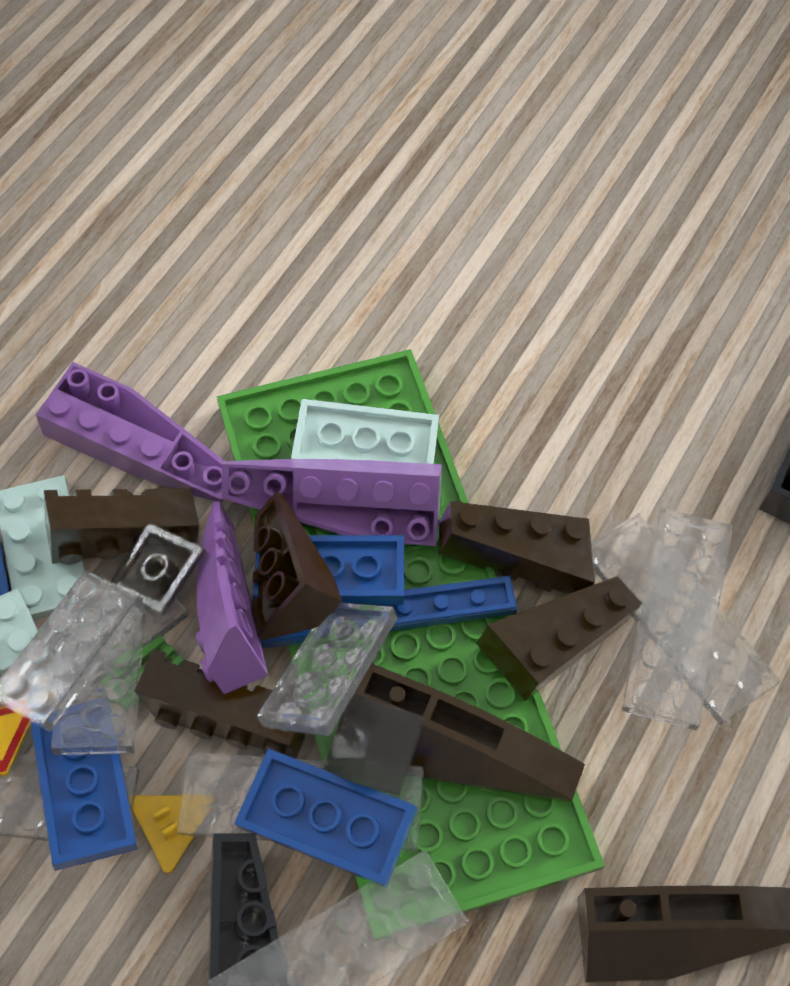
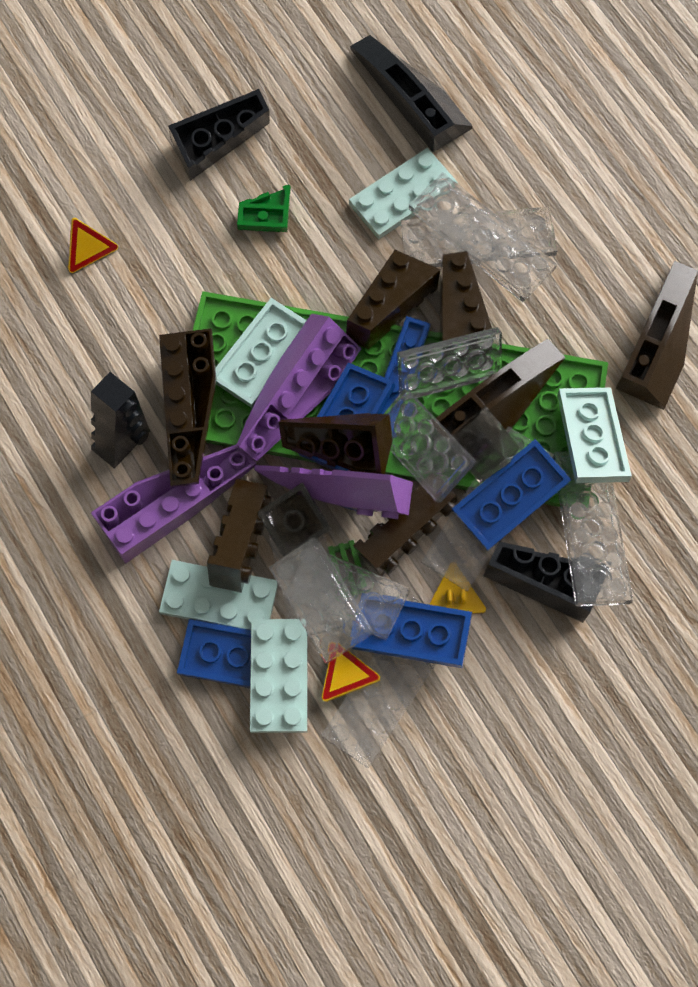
camera: 60 degrees left, 10 degrees up
(192, 329) = (116, 420): none -> black wedge
(253, 387) = (188, 400): none -> dark brown wedge
(397, 218) = (87, 245): none -> piece
(466, 649) = (450, 363): none -> clear plate
(472, 890) = (593, 435): none -> light aqua plate
(554, 368) = (265, 212): none -> green wing
(617, 270) = (217, 131): none -> black wedge
(652, 483) = (388, 199): none -> light aqua plate

